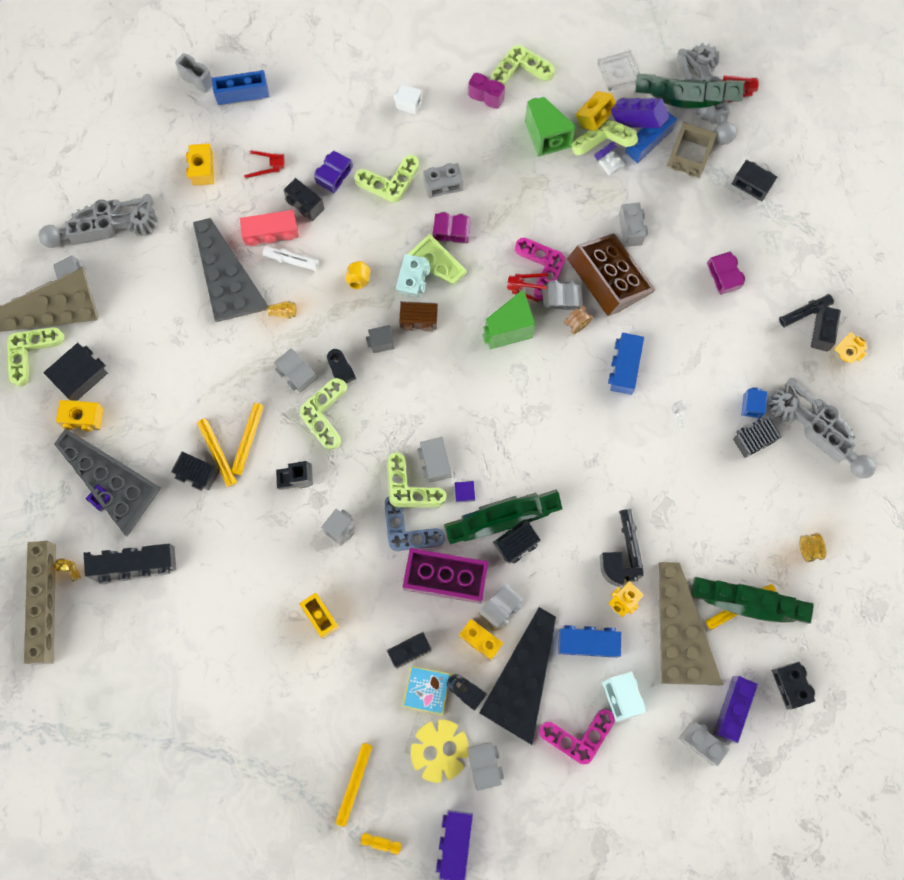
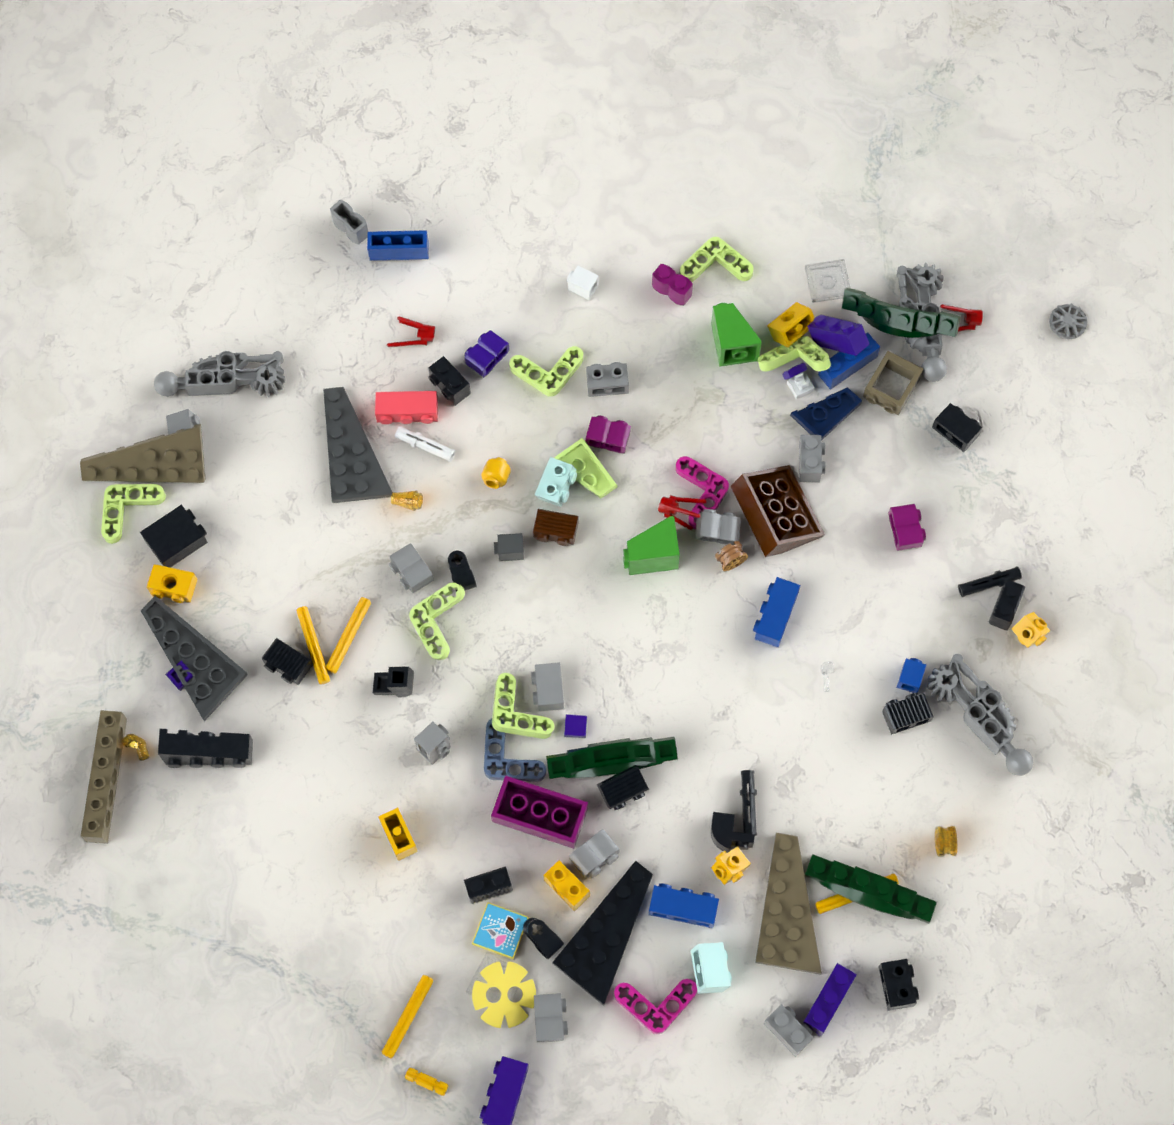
camera: 10 degrees right, 5 degrees down
(202, 155) = (343, 336): yellow brick -> none
(640, 183) = (827, 414): none -> dark blue wing
(829, 78) = (1068, 321): none -> light grey wheel

